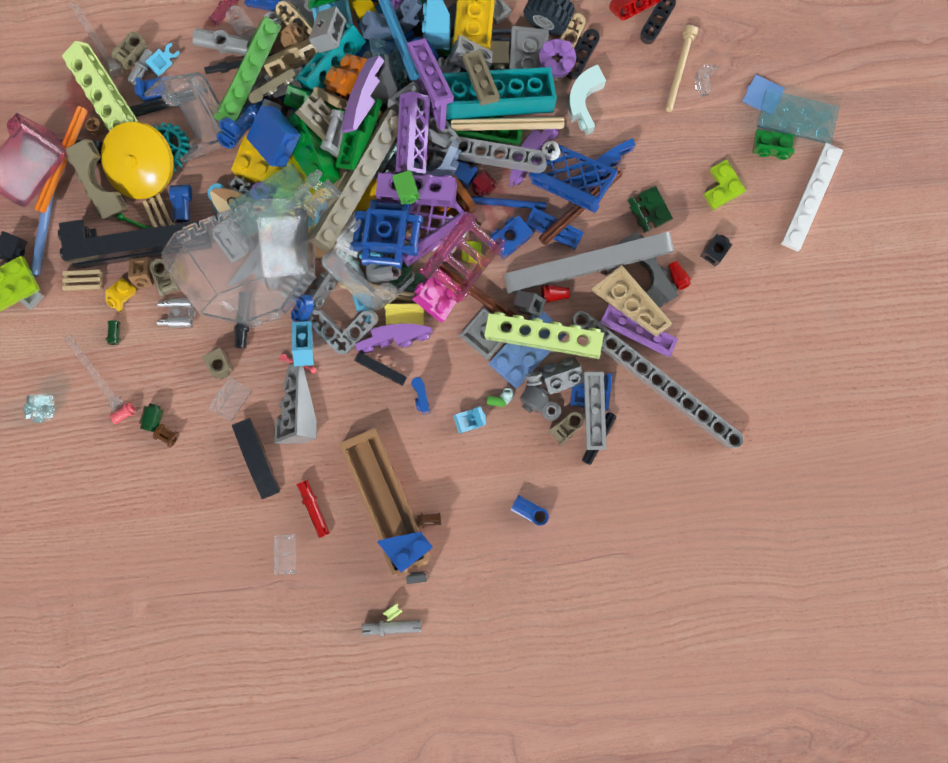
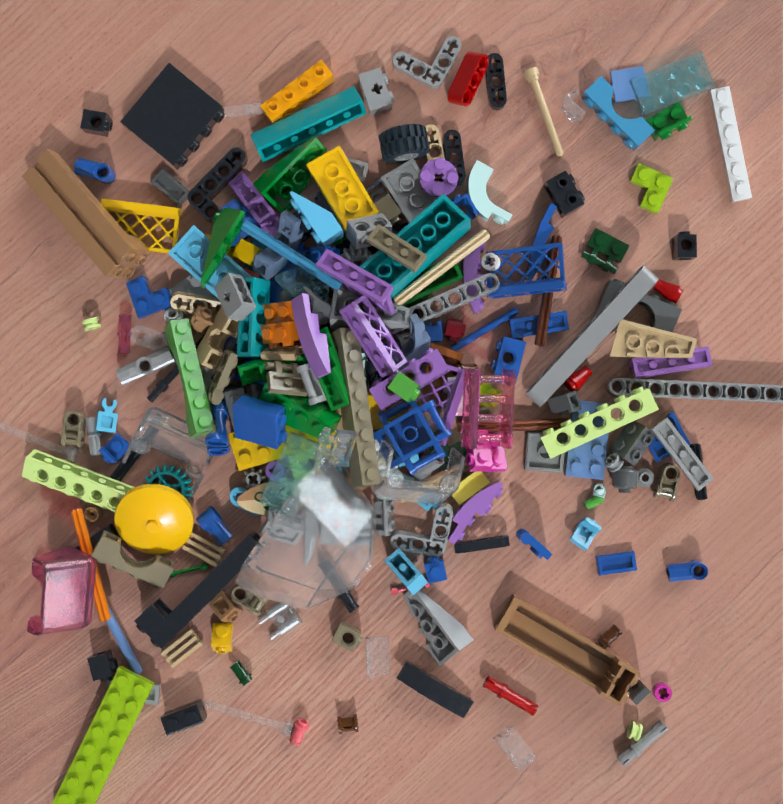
camera: 40 degrees left, 5 degrees up
(39, 408) = (229, 778): clear light blue brick -> none
(41, 333) = (183, 717): none -> black brick
(151, 417) = (325, 719): dark green brick -> none
(302, 308) = (384, 543): blue plate -> none
(327, 361) = (435, 569): none -> blue brick
(405, 549) = (616, 679): blue wing -> none
(444, 599) = (668, 695): none -> dark pink bush
(478, 464) = (616, 563): none -> blue tile
(562, 88) = (465, 199): none -> blue window
(648, 141) = (564, 194): none -> black brick
(740, 131) = (632, 131): none -> dark azure arch

